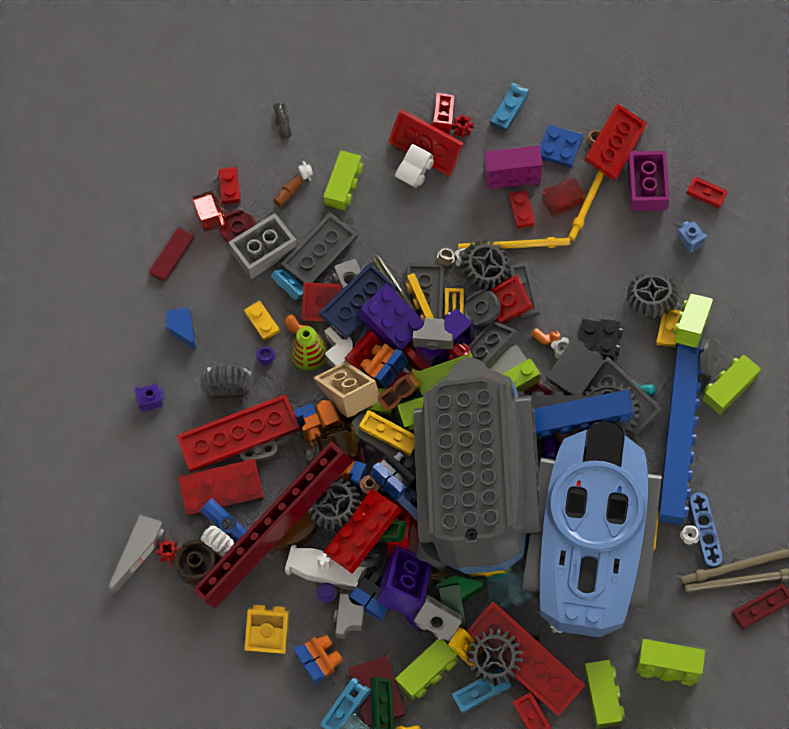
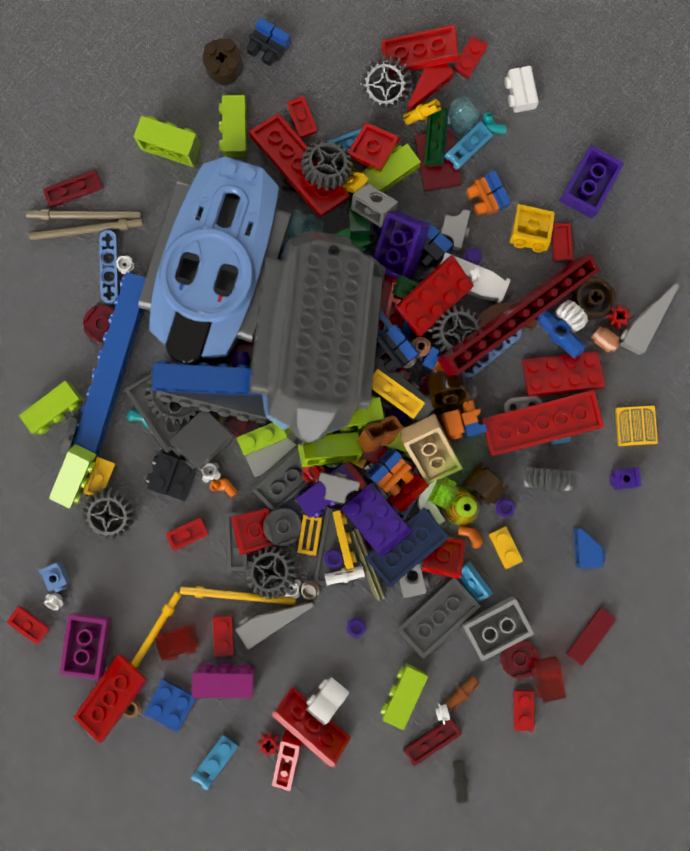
camera: 175 degrees left, 20 degrees up
(141, 449) = (636, 425): none -> tile
(179, 527) = (605, 339): none -> nougat brick
(208, 684) = (591, 182): none -> dark purple brick
(233, 622) = (562, 242): none -> red tile
(288, 369) = (485, 483): none -> dark brown brick
(312, 148) = (432, 741): none -> dark red tile
(330, 346) = (443, 493): none -> clear neon green brick
(396, 232) = (356, 627): none -> dark purple plate
(425, 269) = (344, 575): none -> white pin
(428, 285) = (333, 558): none -> dark purple plate
(448, 684) = (373, 146): none -> red plate
(484, 221) = (263, 625): none -> light grey slope
(572, 289) = (187, 534): none -> red plate
(687, 215) = (54, 601): none -> white plate
(703, 481) = (93, 323): none -> dark red tile

